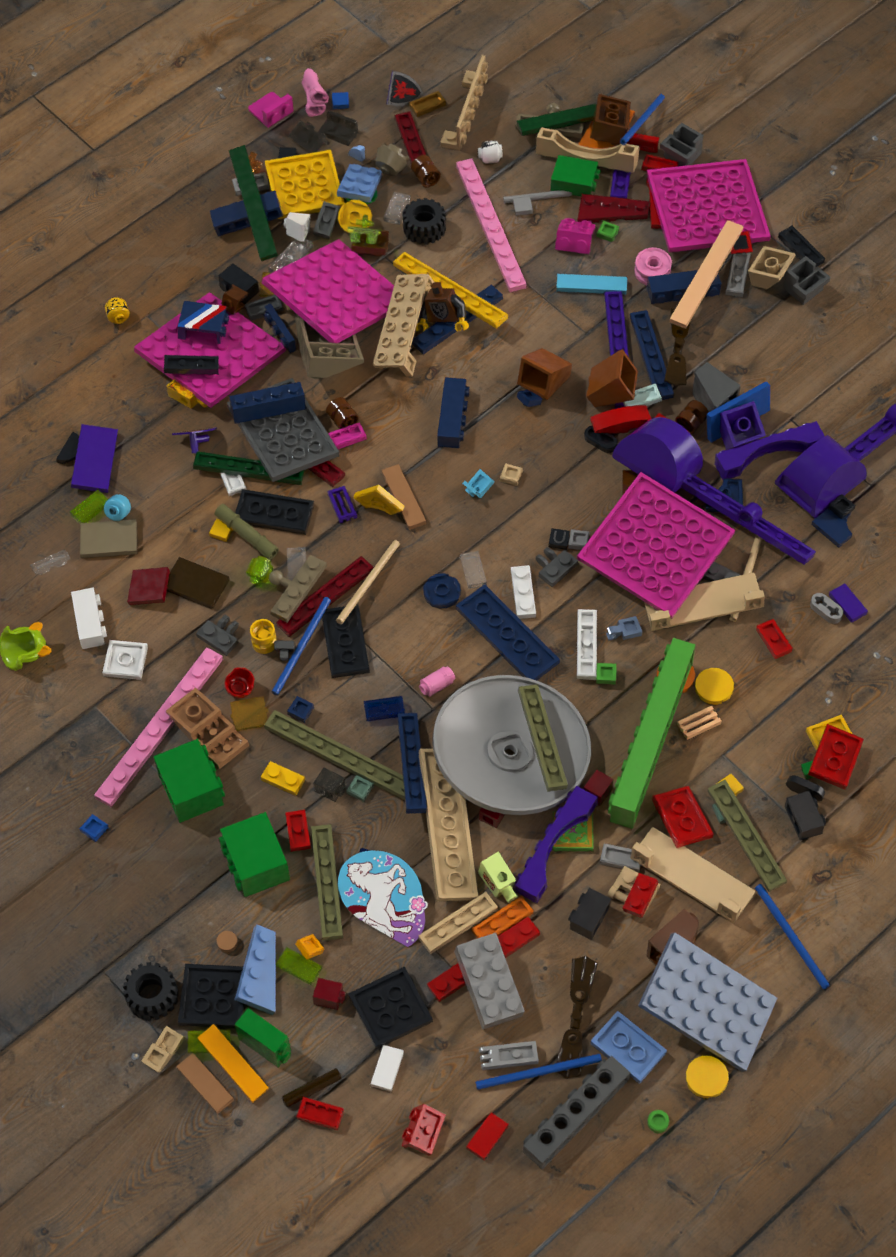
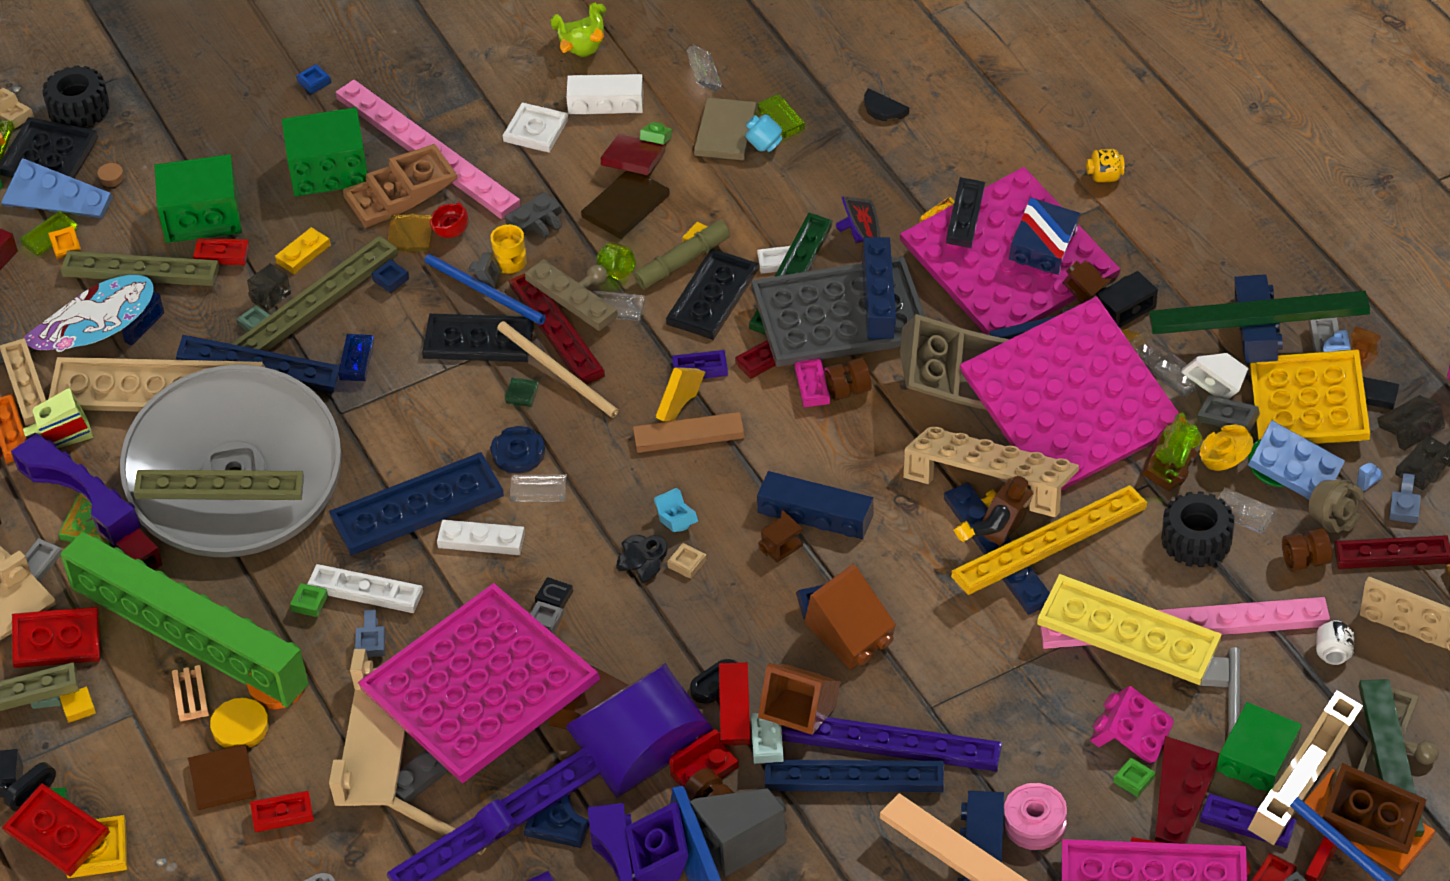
camera: 105 degrees right, 10 degrees down
(94, 458) = (857, 124): dark purple tile -> none
(124, 577) = (656, 133): none -> bright green plate
(260, 174) = (1337, 342): none -> light blue tile
(374, 136) = (1404, 504): none -> sand blue plate
(389, 601) = (521, 392): none -> clear green tile
(436, 681) = (373, 416): bright pink head -> none
(483, 424) = (780, 538): none -> reddish brown window
(512, 239) = (1129, 629): none -> light yellow plate
(517, 499) = (640, 557): none -> black plate
(557, 568) = (508, 577): dark grey hinge -> none
(590, 283) = (1024, 731): medium azure tile -> none
(675, 370) = (811, 797): dark brown piece -> none
(757, 683) = (222, 777): none -> reddish brown tile

